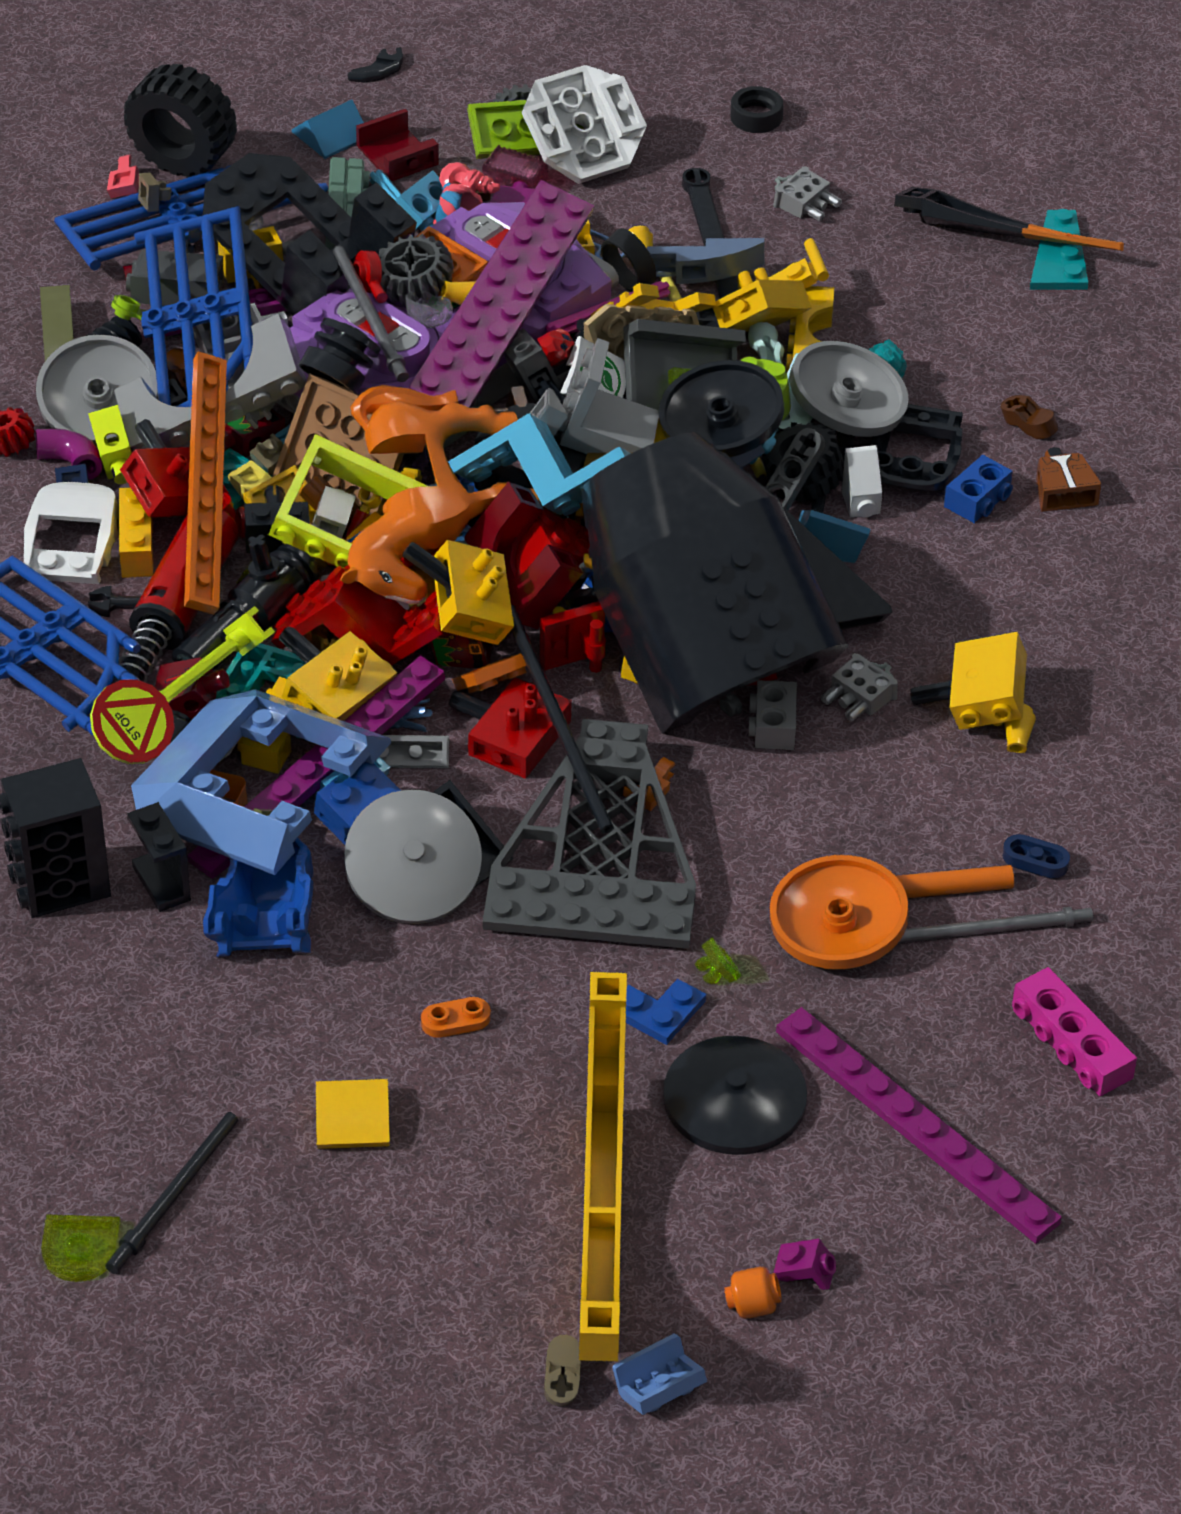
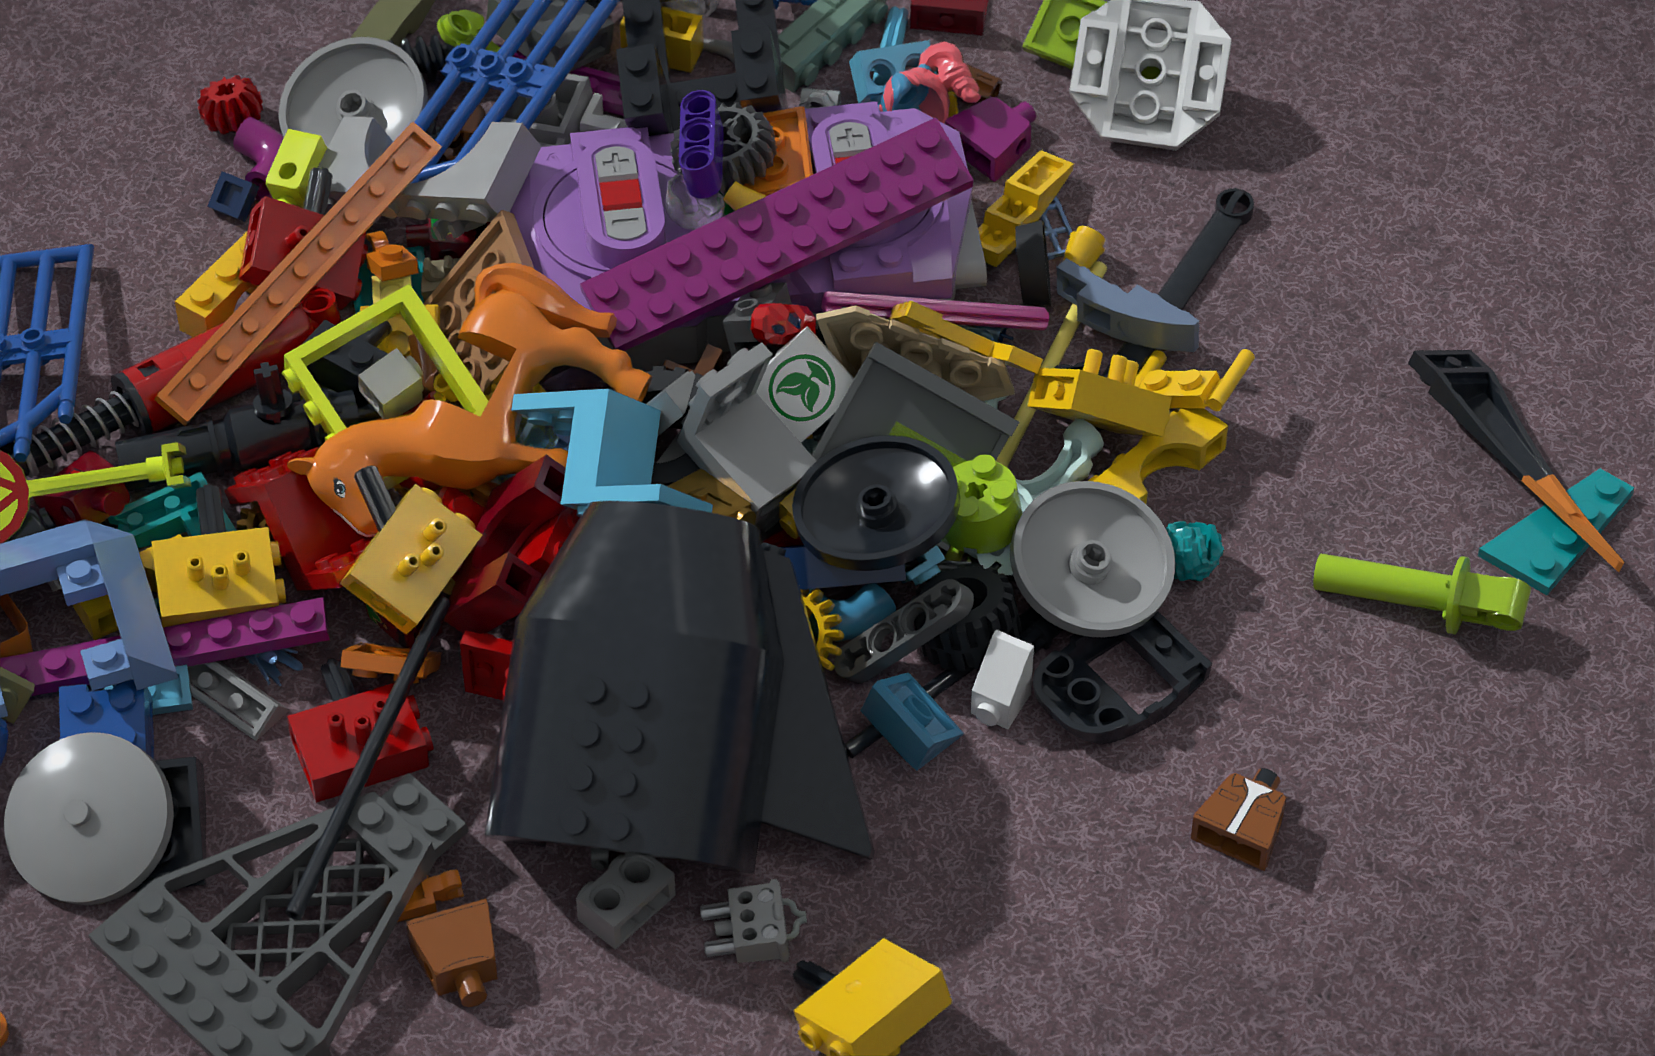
camera: 40 degrees right, 5 degrees up
(72, 503) = (196, 217): white slope -> none
(110, 601) = (131, 353): black bar -> none
(238, 458) = (388, 260): none -> orange plate
(342, 352) = (531, 209): black wheel -> none
(370, 273) = (663, 130): red piece -> none
(395, 362) = (584, 247): flat silver bar -> none
(413, 264) = (701, 144): none -> dark purple beam
(510, 166) = (1044, 85): clear pink brick -> none
(711, 799) = (456, 950): none -> dark orange torso
(756, 122) = (1393, 177): black tyre -> none
(804, 192) = (1333, 289): light grey piece -> none
(978, 489) = (1135, 765): blue brick -> none
(1029, 416) = (1293, 714): reddish brown piece -> none
(1054, 306) = (1459, 596): none -> lime piece

